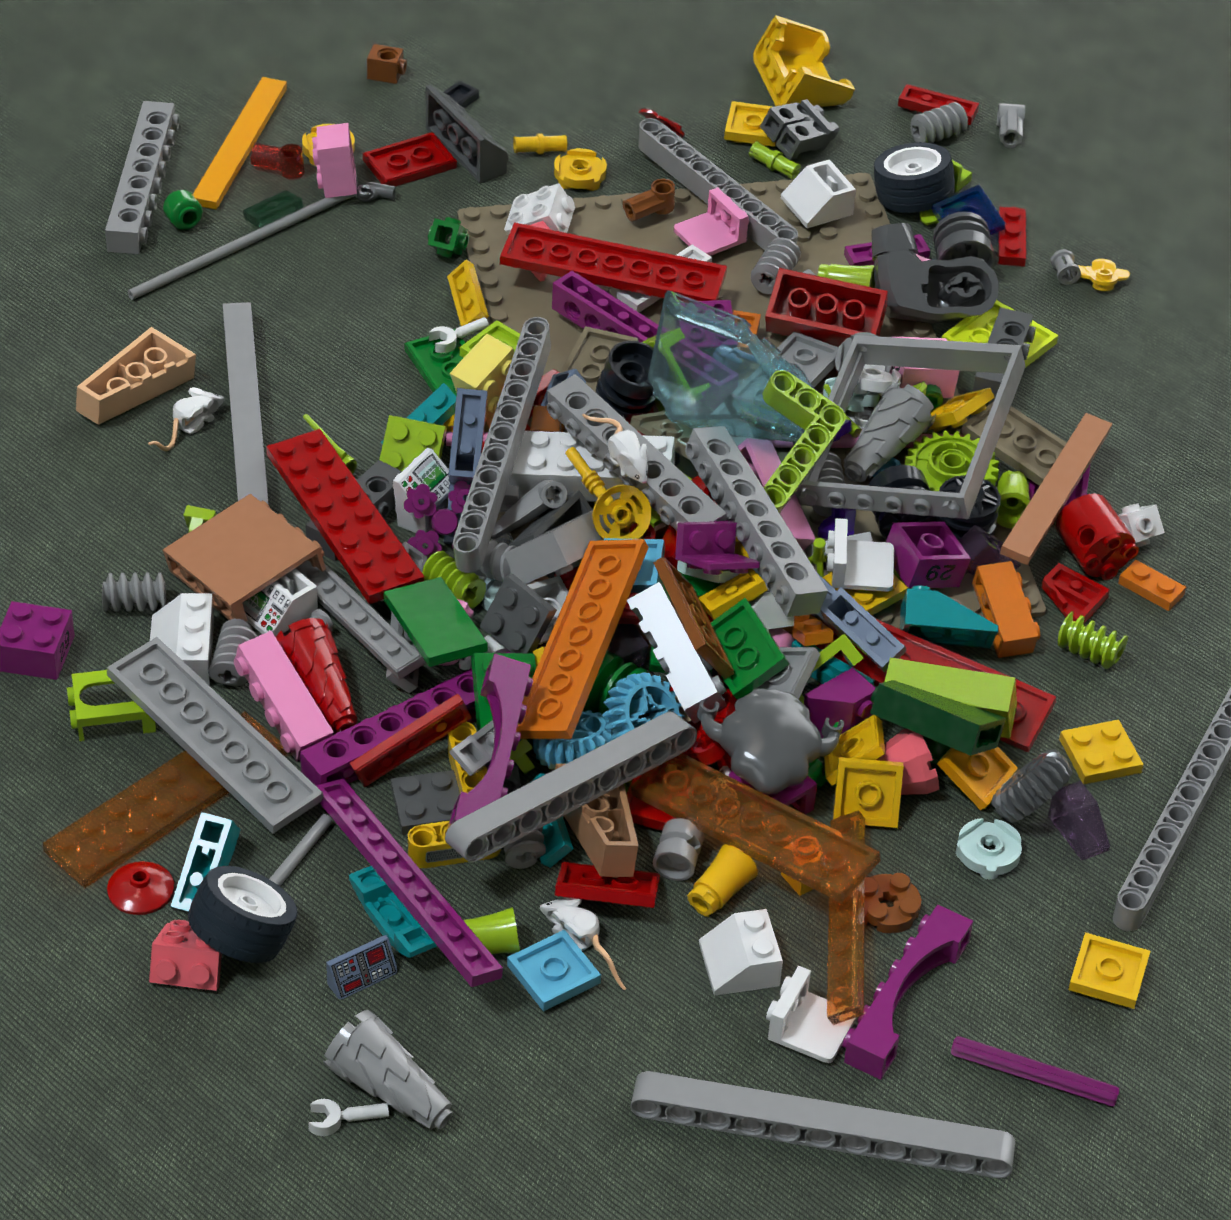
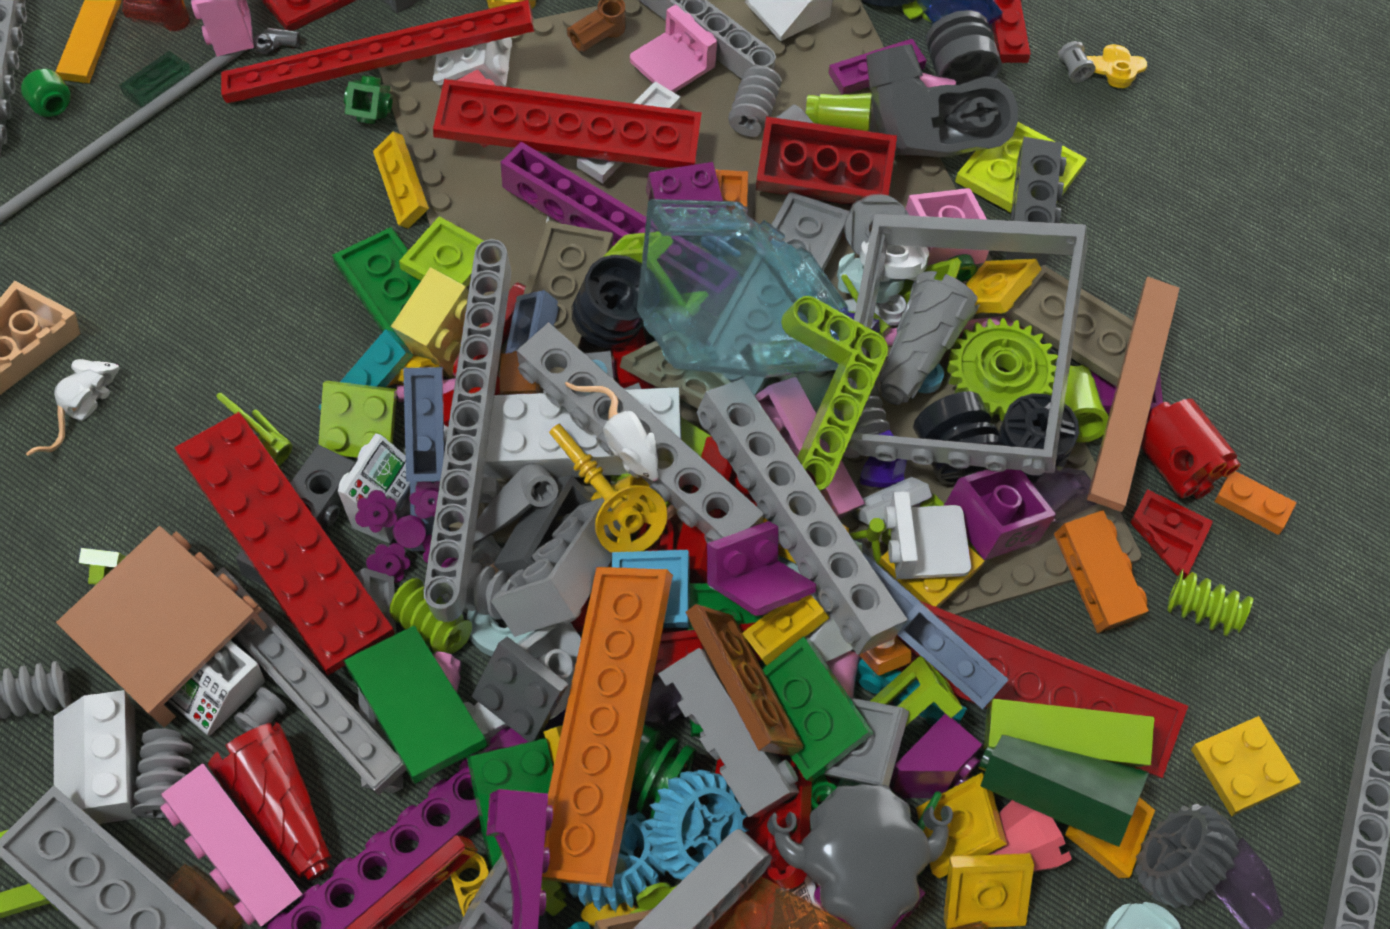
camera: 10 degrees left, 15 degrees up
(244, 401) = (146, 381): light grey beam -> none
(450, 336) = (386, 241): white piece -> none
(460, 201) = (377, 51): none -> red plate
(944, 620) = (1015, 603): teal slope -> none
(1142, 522) = (1233, 418): white brick -> none

